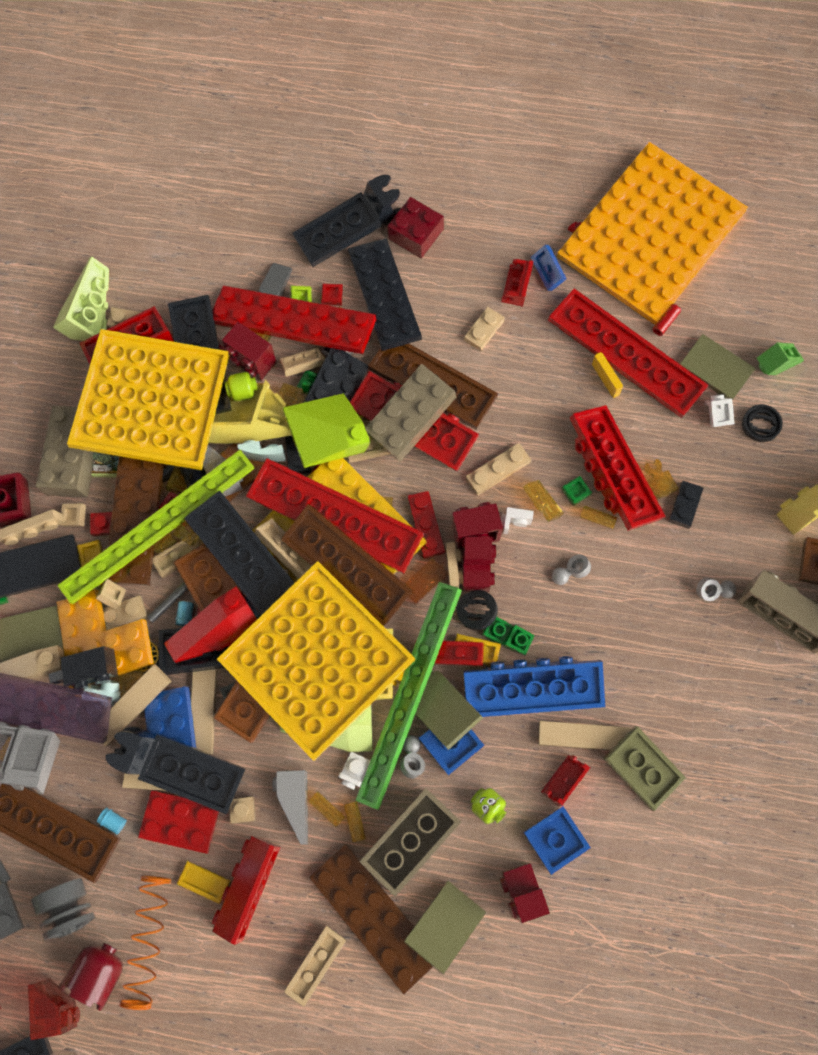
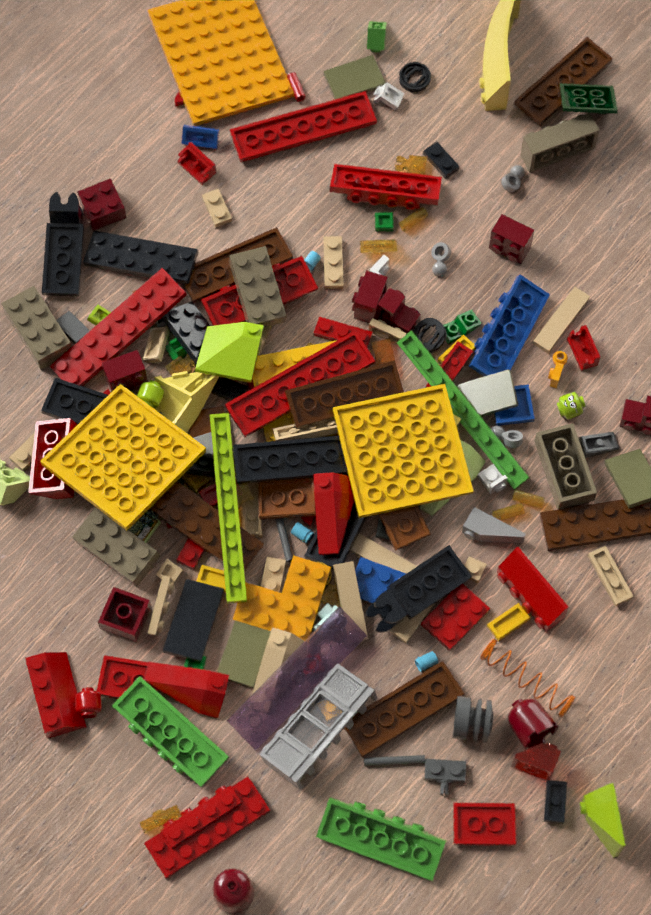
camera: 60 degrees left, 5 degrees down
(85, 668) = (306, 612): black hinge -> none
(111, 594) = (256, 573): tan plate -> none
(253, 249) = (36, 327): none -> dark tan brick
(254, 451) = (216, 408): light aqua slope -> none
(332, 294) = (112, 295): red tile -> none
(463, 860) = (598, 444): none -> dark grey slope
(483, 447) = (312, 260): none -> medium azure piece
(516, 767) = (555, 374): none -> light orange plate
(557, 840) = (619, 377): blue plate -> none
(607, 375) = (312, 149): yellow tile -> none
(638, 628) = (511, 239): none -> dark red brick
(644, 768) = (605, 295): olive tile -> none

